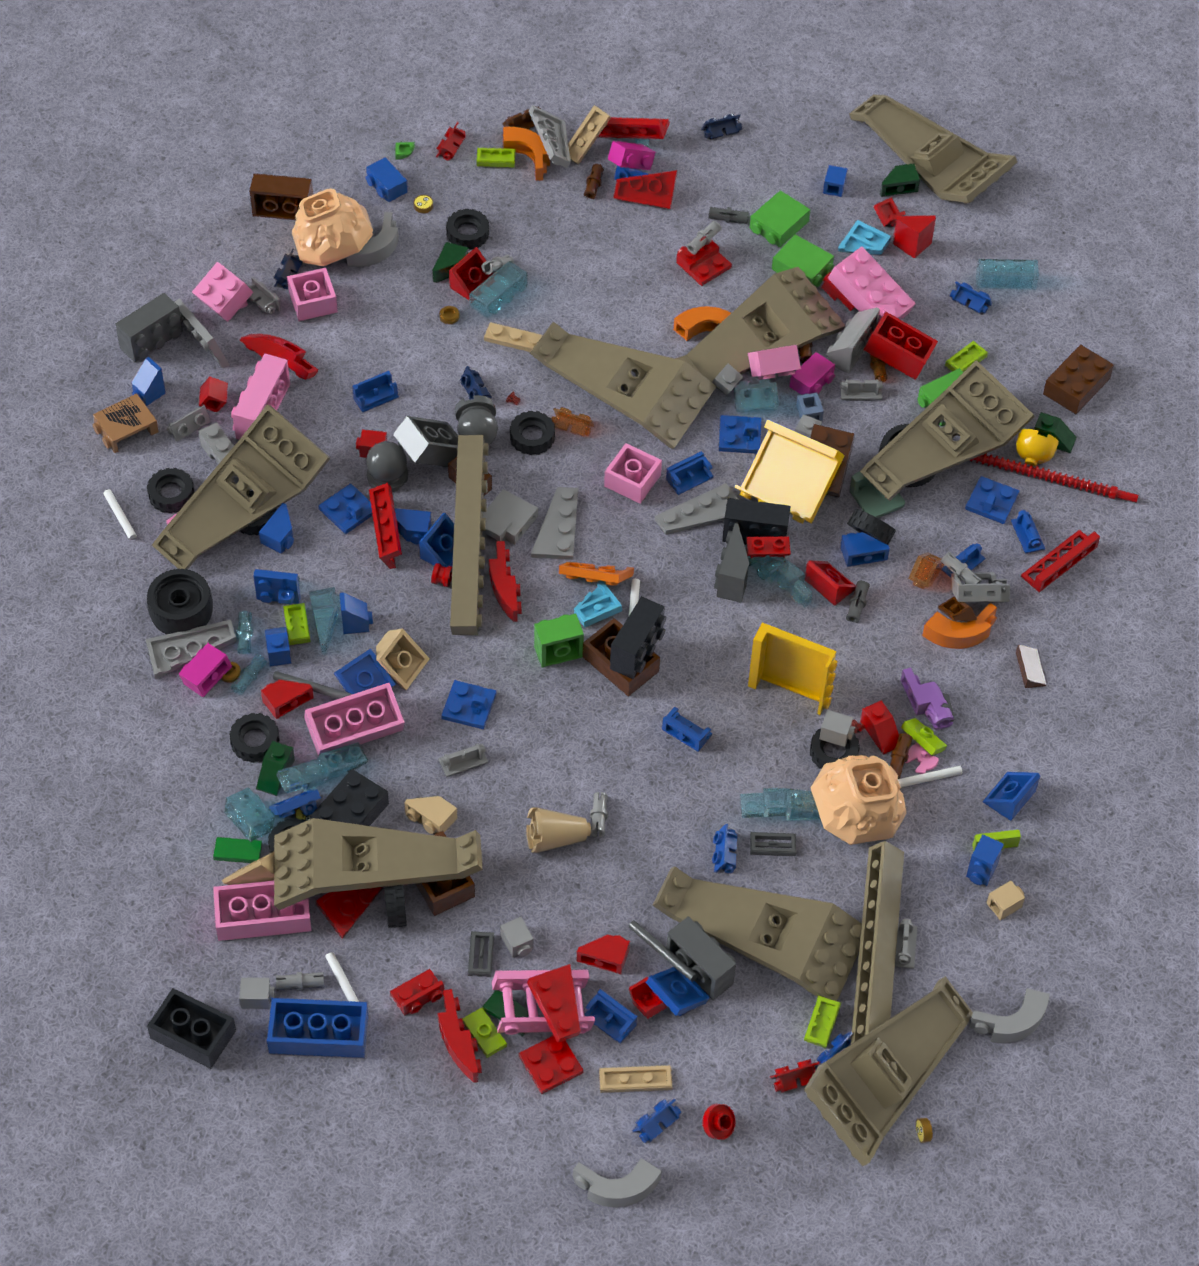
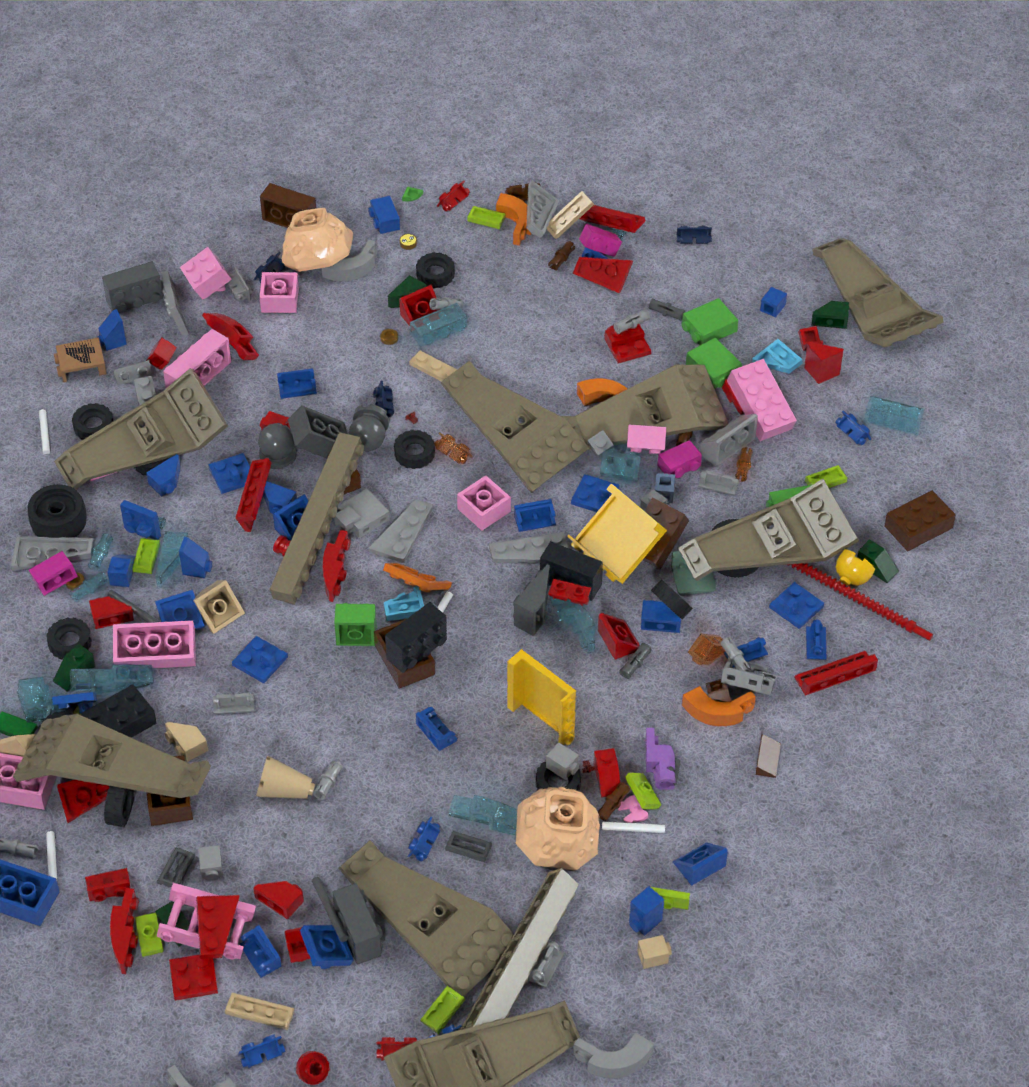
camera: 20 degrees right, 5 degrees down
(900, 345) = (767, 452): red brick -> none

